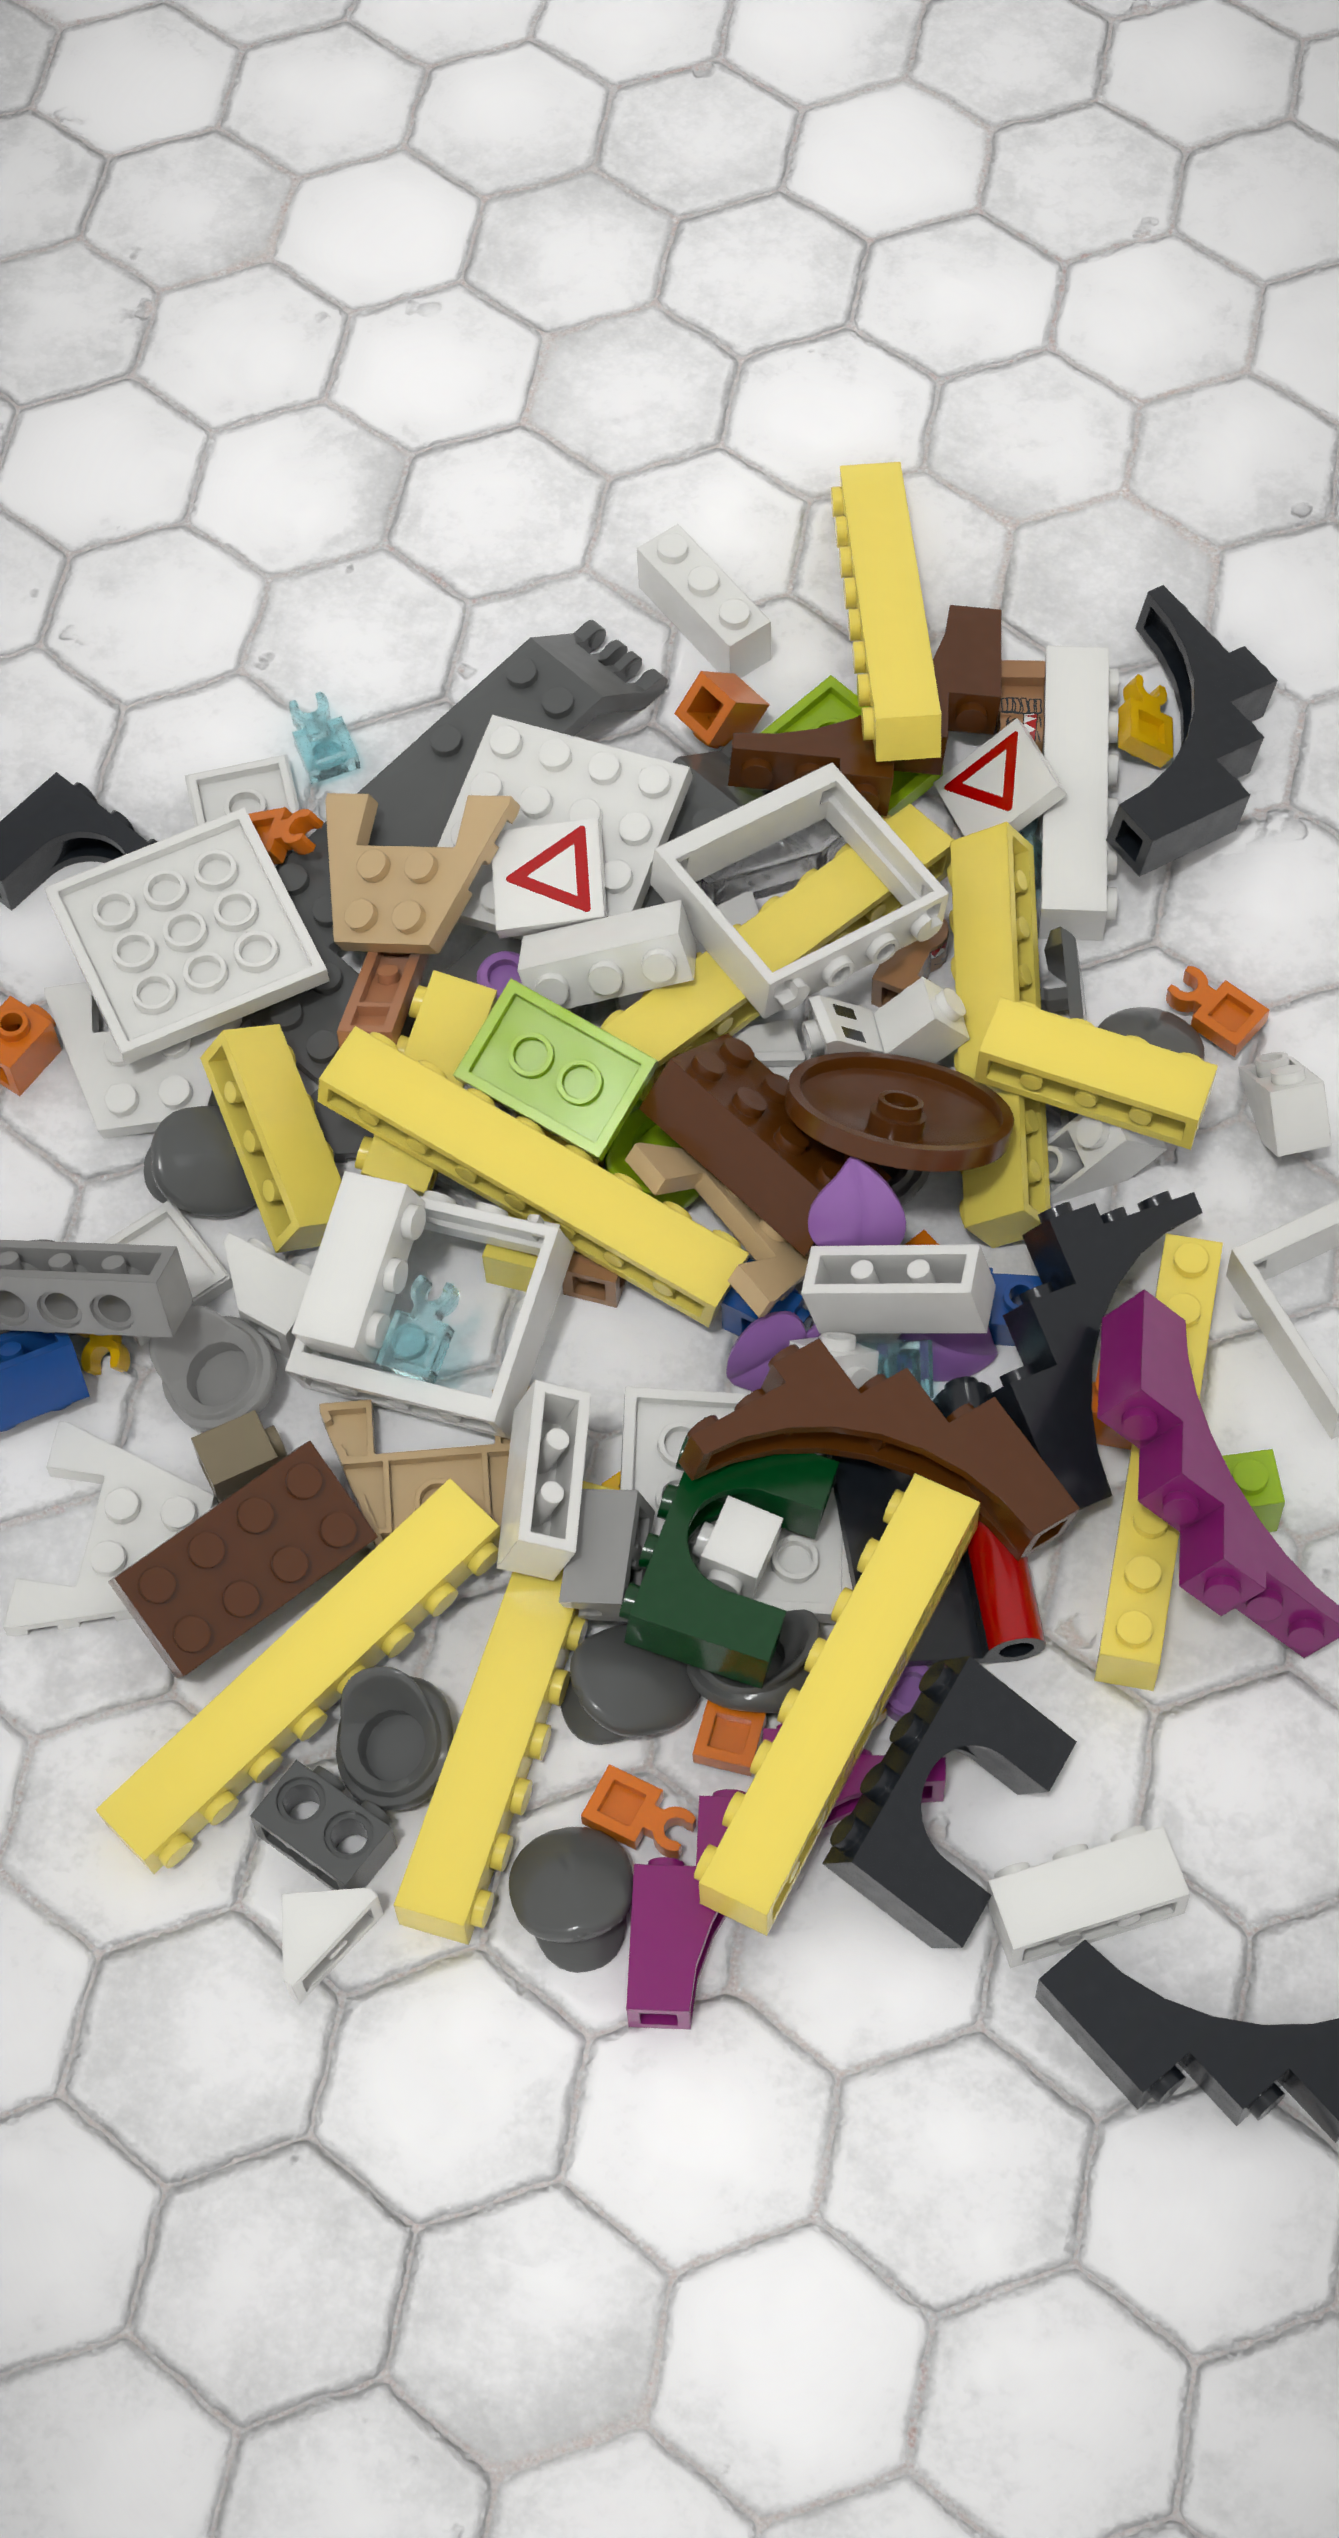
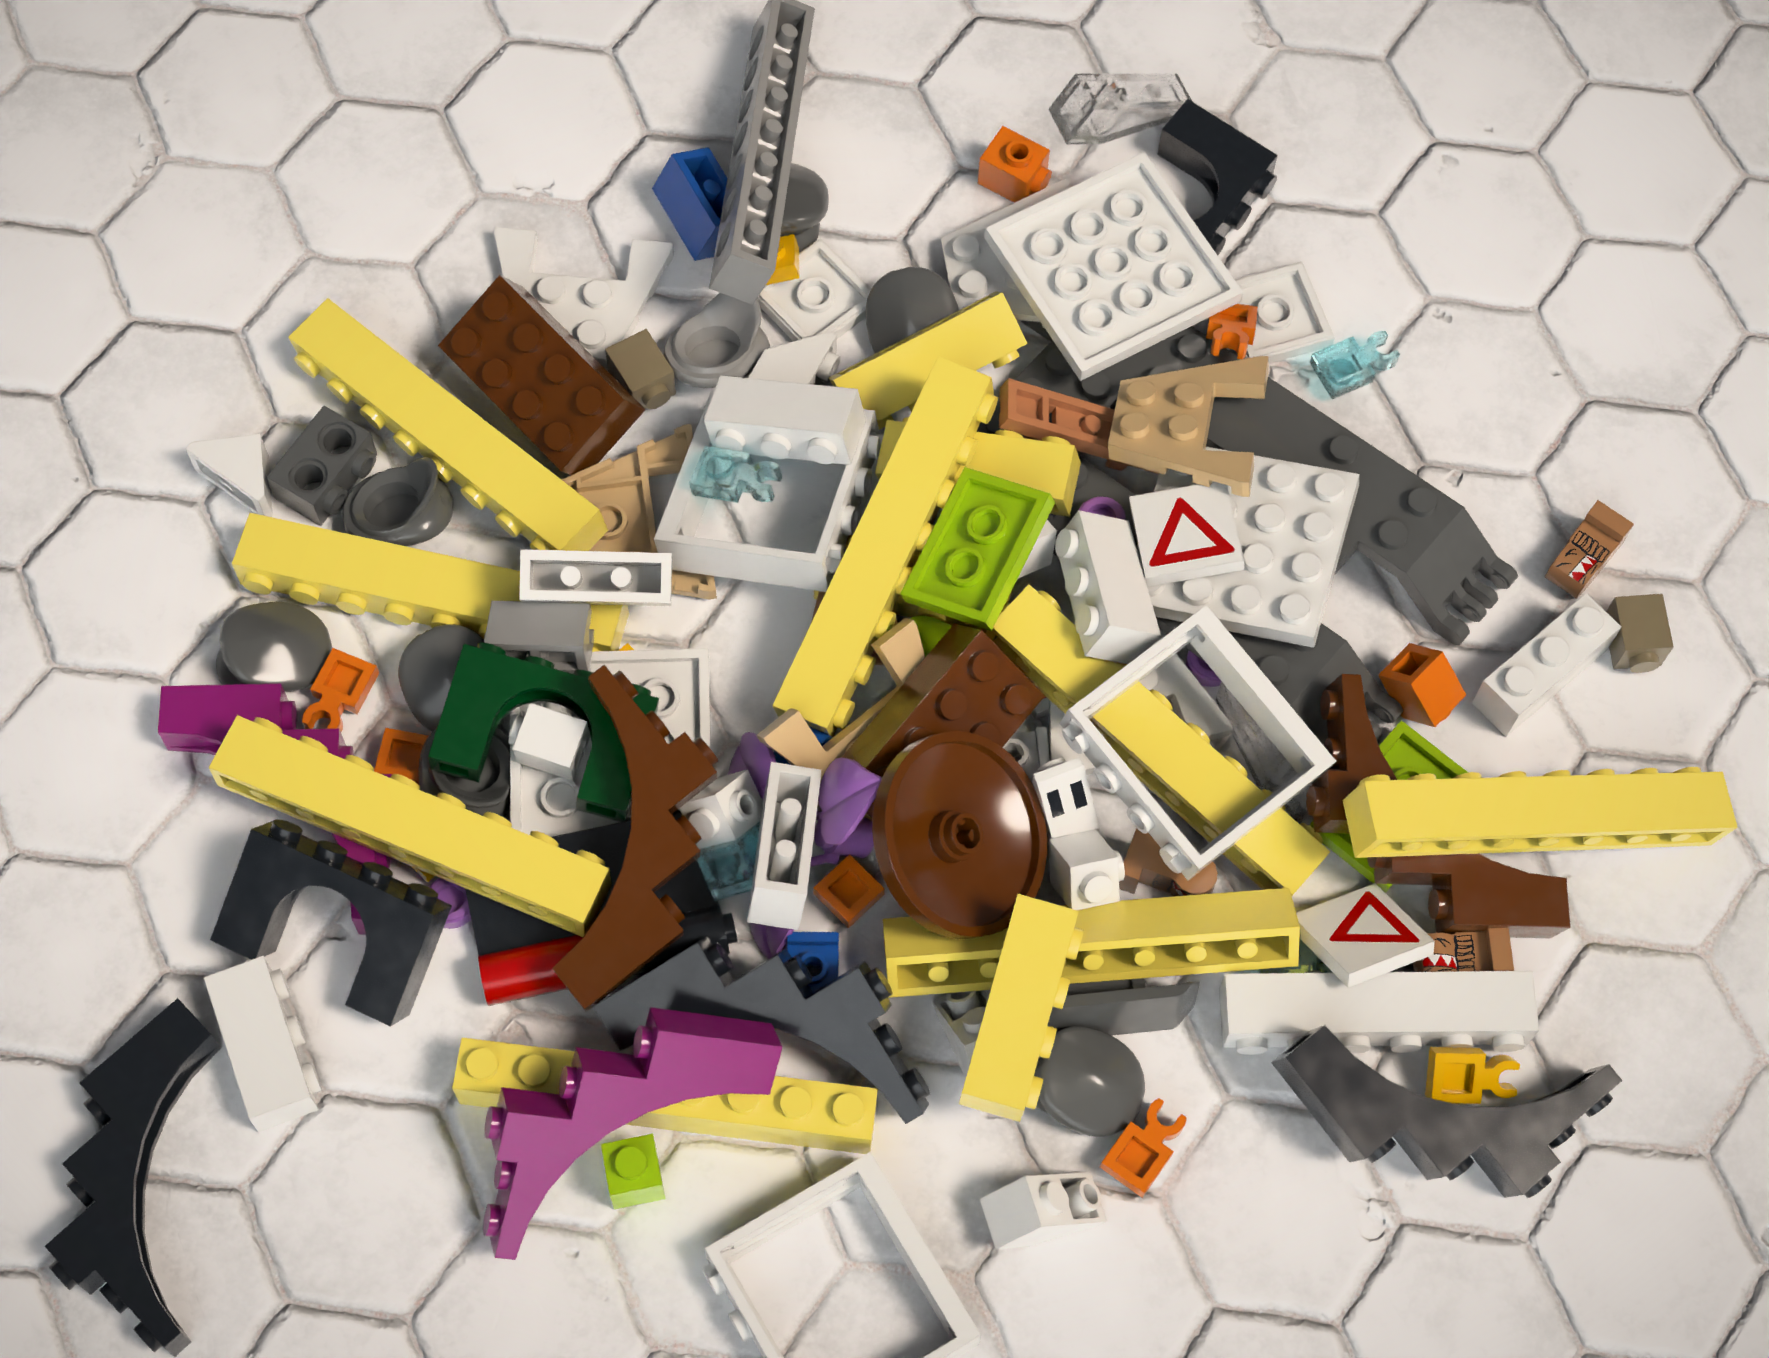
camera: 80 degrees right, 5 degrees up
(572, 555) = (1589, 549): none -> medium nougat leg
(671, 506) = (1644, 633): none -> dark tan brick

